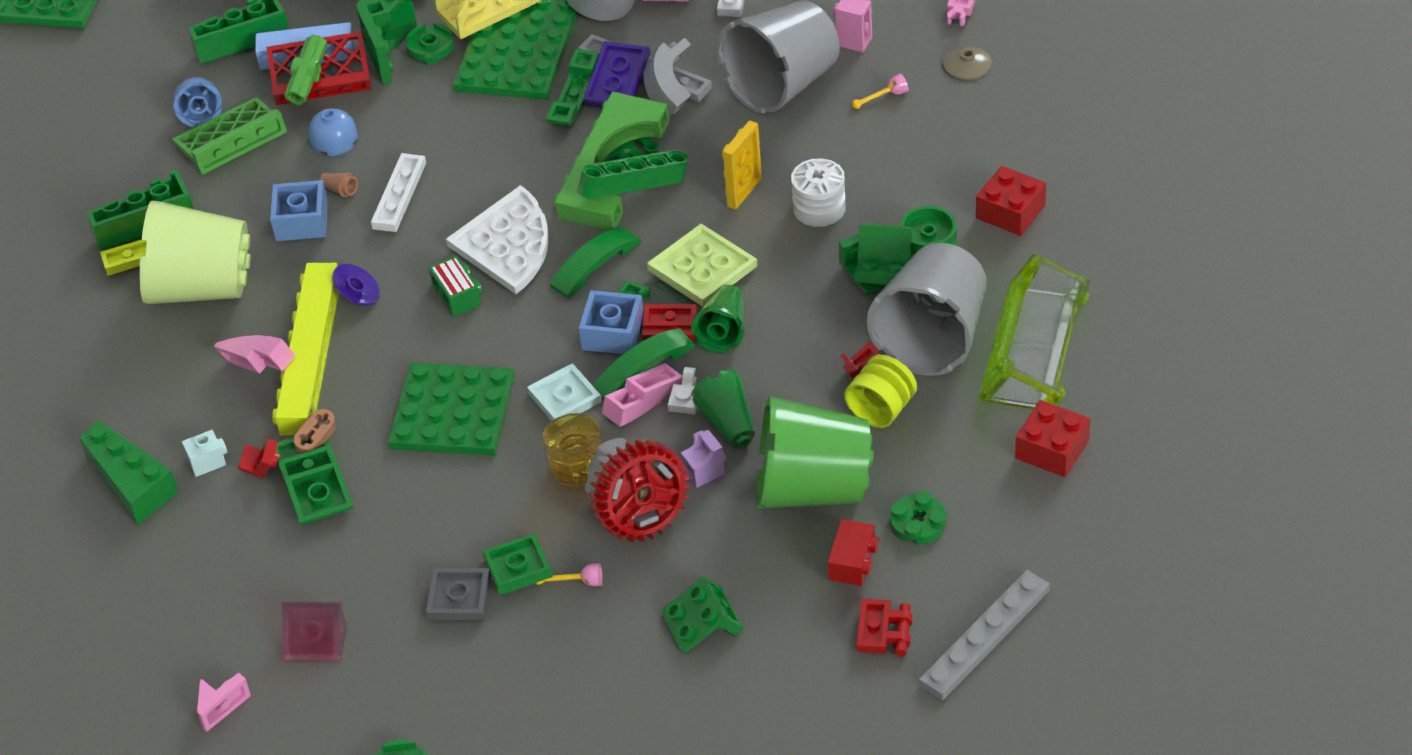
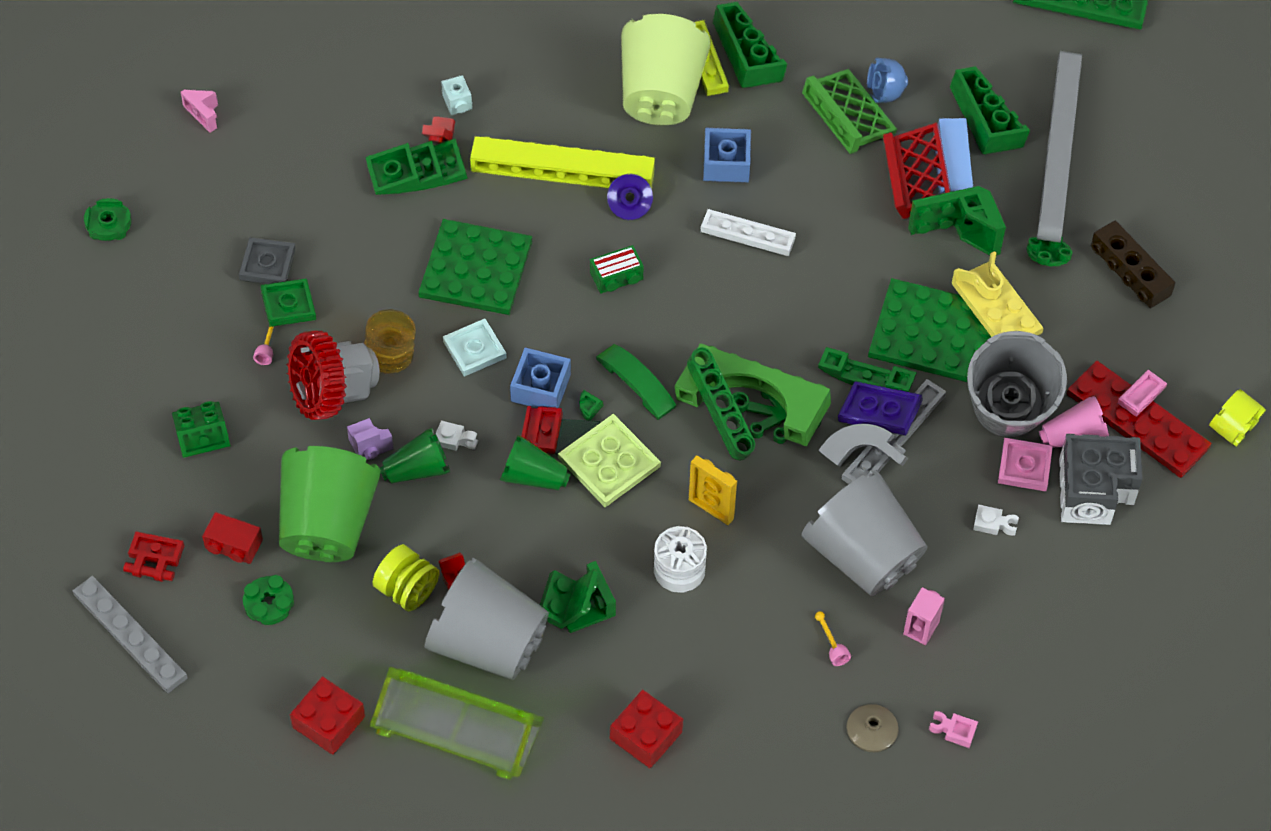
camera: 90 degrees right, 10 degrees up
(130, 472) = (446, 45): green wedge -> none
(256, 352) = (549, 122): bright pink slope -> none
(306, 69) = (900, 152): bright green piece -> none
(312, 430) = (460, 161): nougat beam -> none
(313, 630) = (250, 166): clear pink slope -> none
(332, 132) = (837, 184): medium blue cylinder -> none
(340, 183) = (765, 190): nougat cone -> none
(429, 43) = (946, 251): green plate -> none
(506, 240) = (671, 312): white plate -> none
(640, 394) = (458, 401): bright pink slope -> none
(642, 358) = (494, 405): green slope -> none
(930, 226) = (601, 645): green wheel -> none

